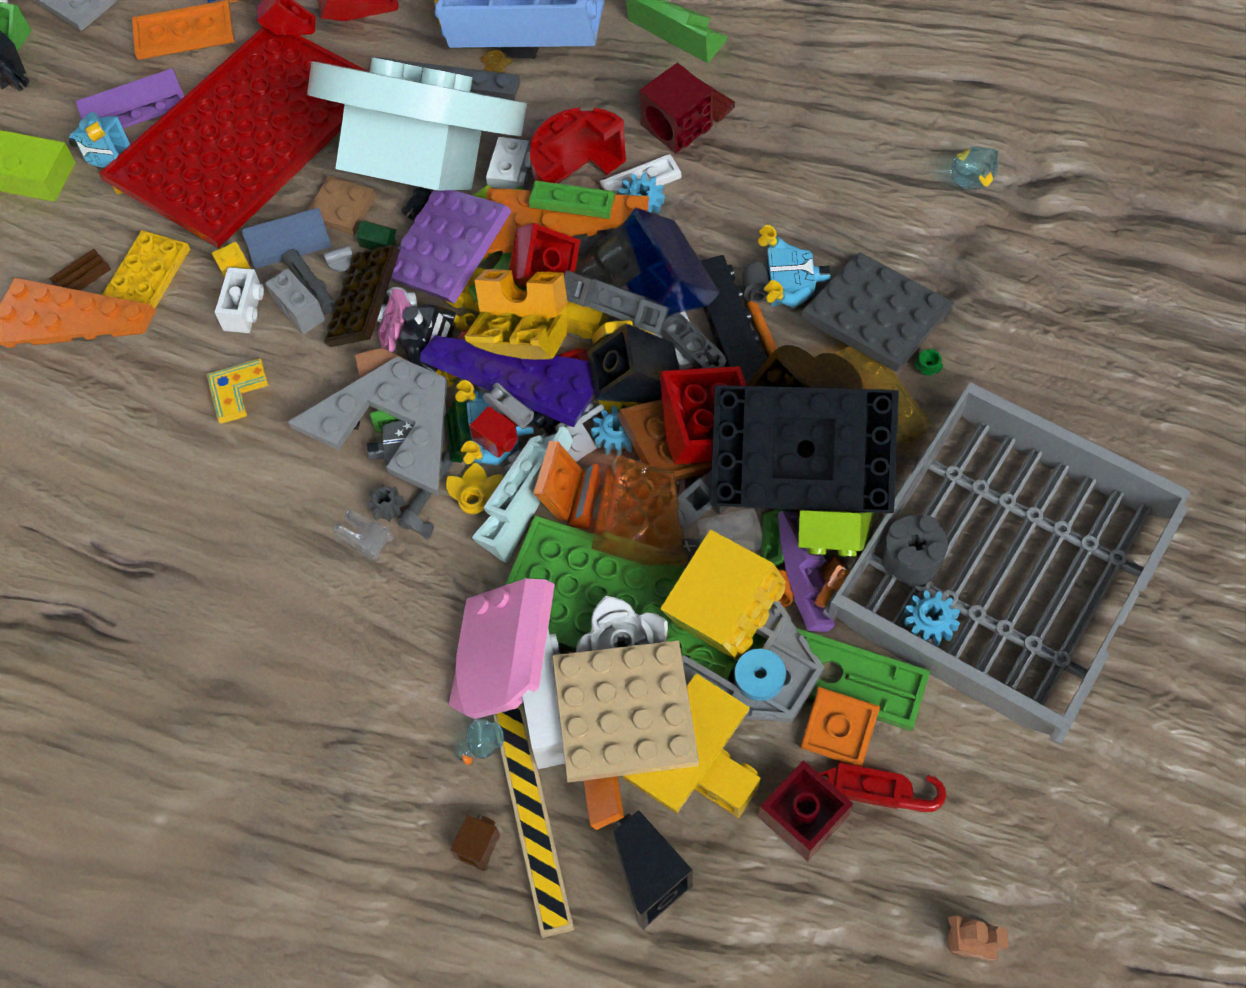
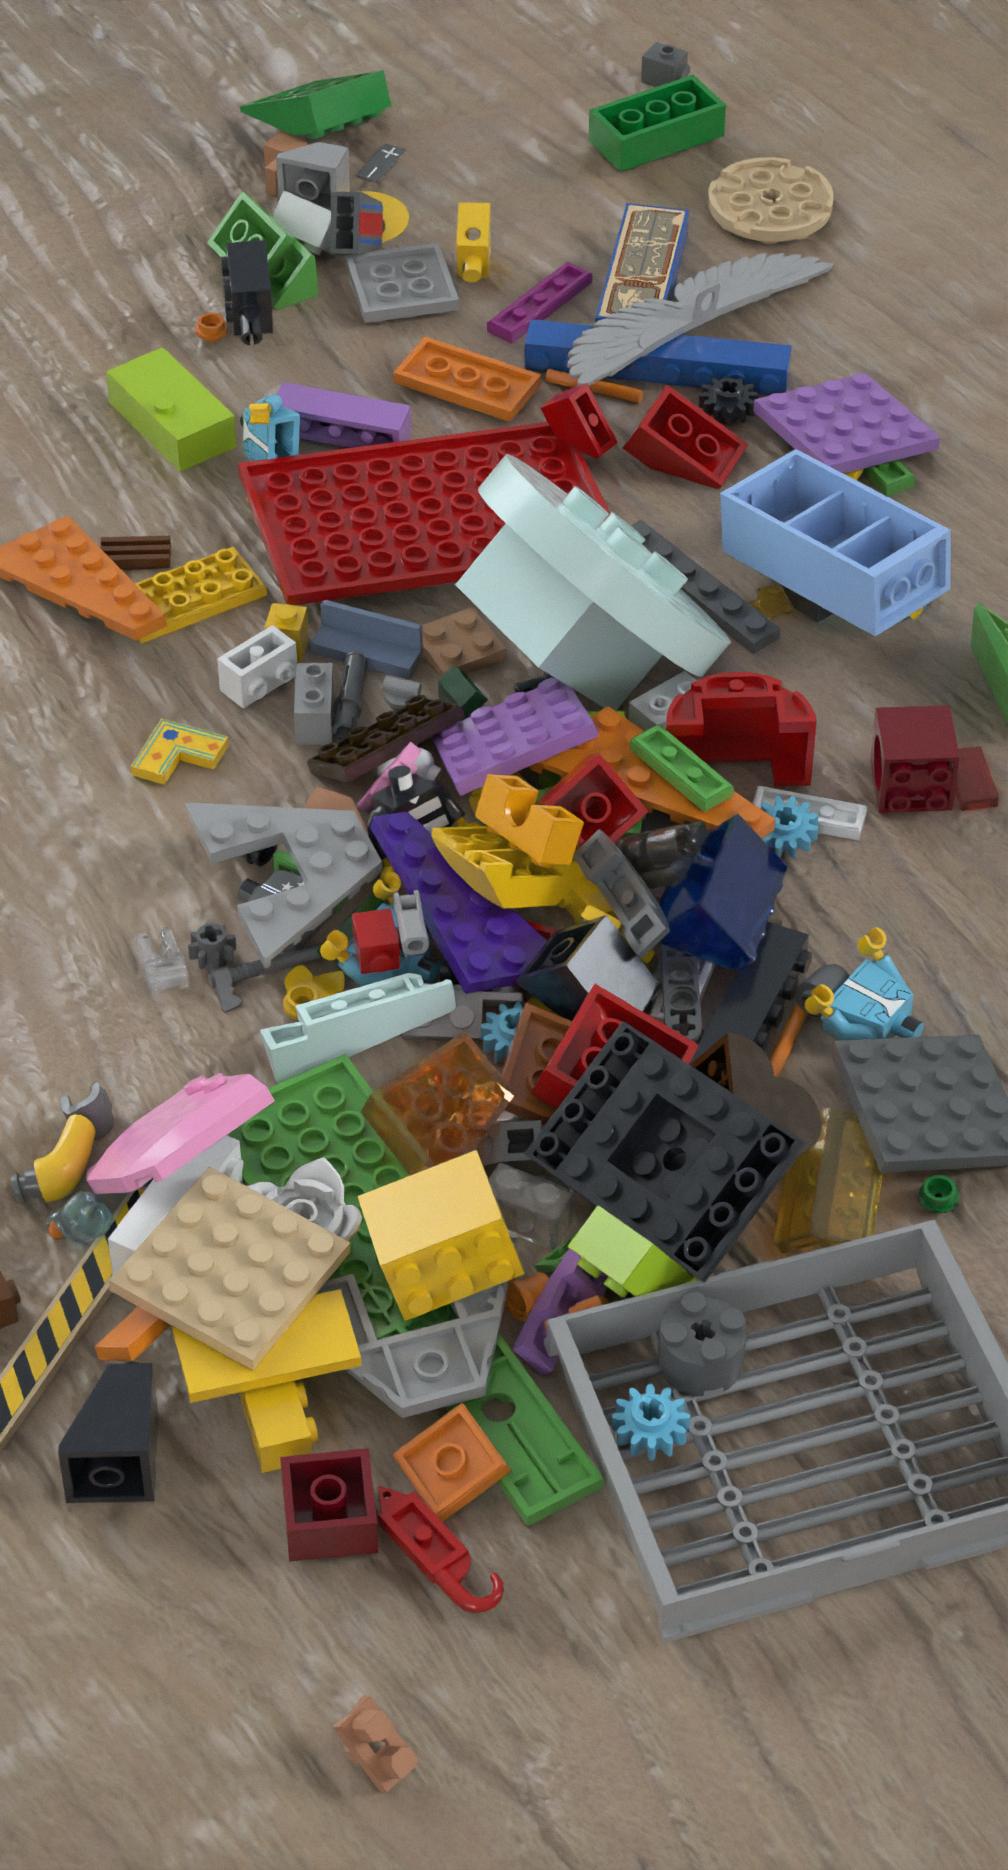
camera: 35 degrees right, 15 degrees down
(437, 718) = (63, 1168): none -> piece
(558, 481) = (397, 1033): orange tile -> none
(764, 661) = (408, 1358): medium azure piece -> none

